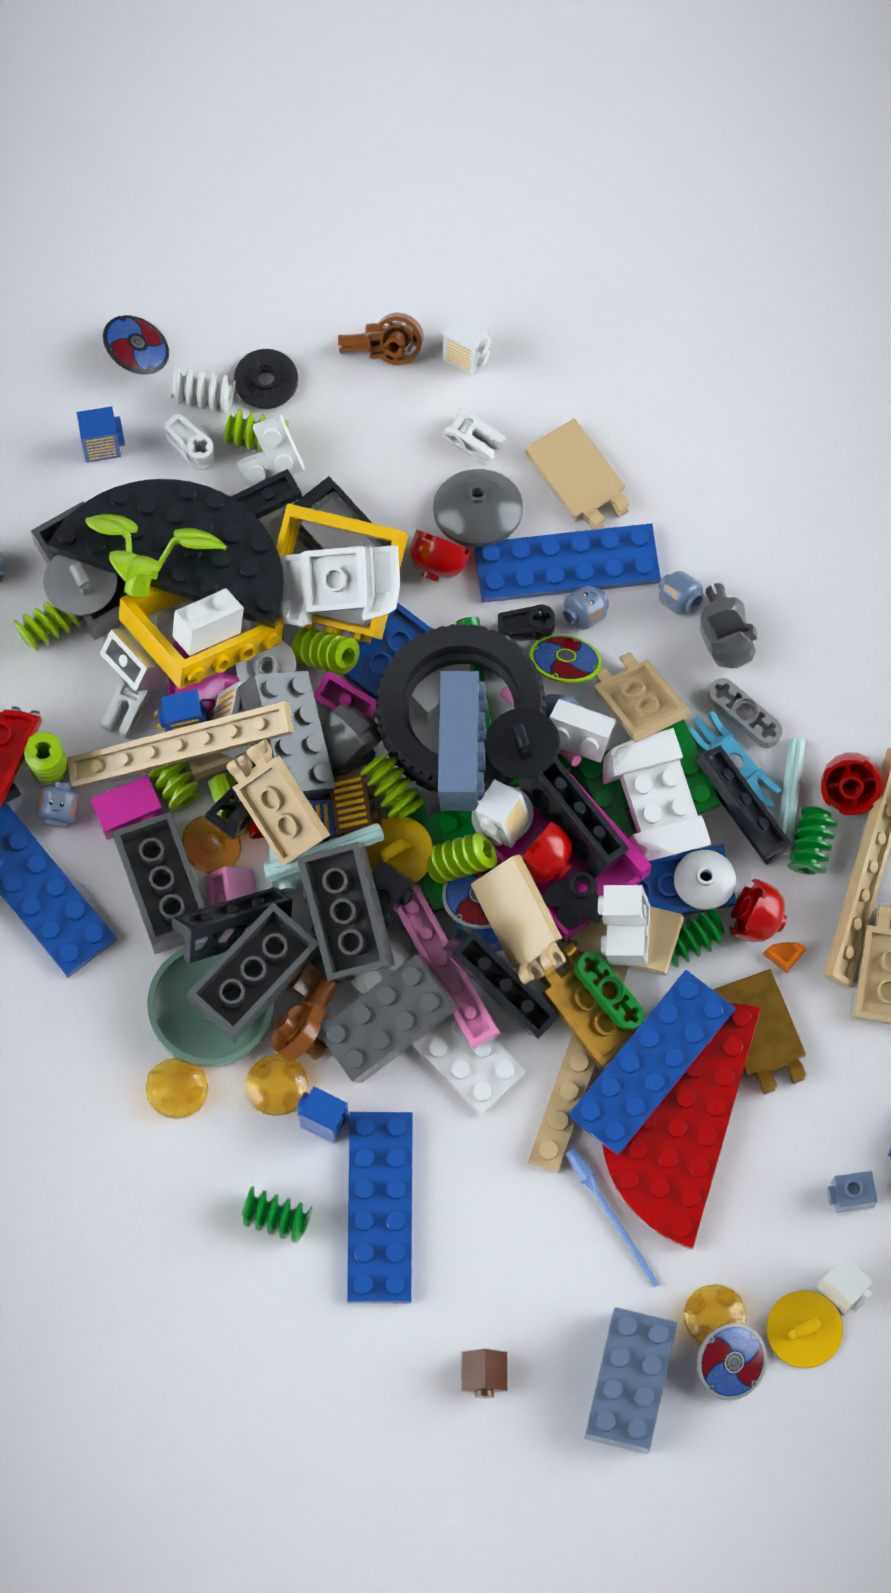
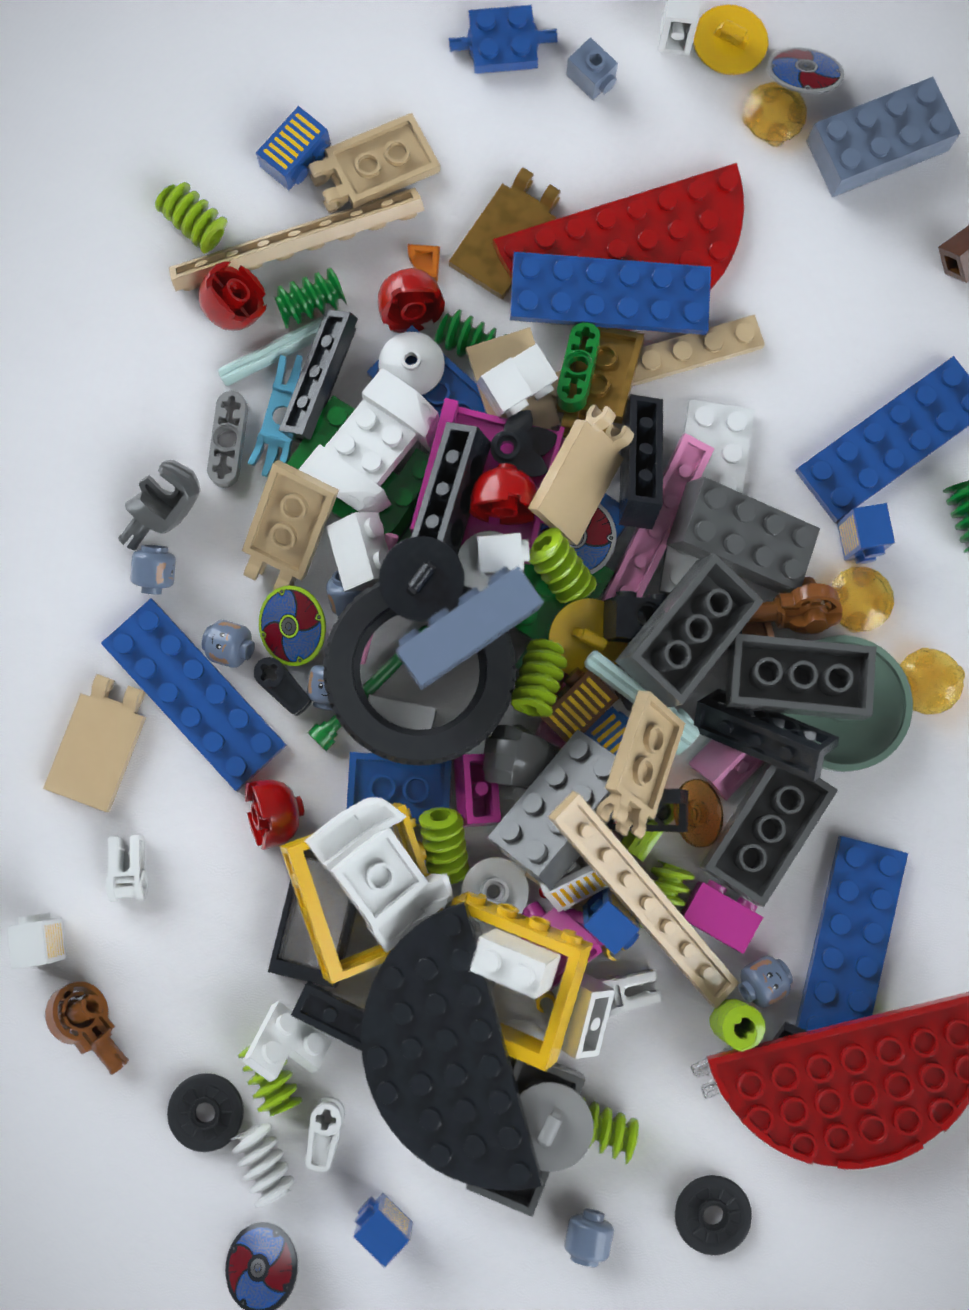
camera: 125 degrees left, 10 degrees up
(140, 570) = (517, 1067): lime plant -> none
(481, 519) = (217, 808): dark grey dish -> none
(588, 1179) = (741, 286): medium blue piece -> none

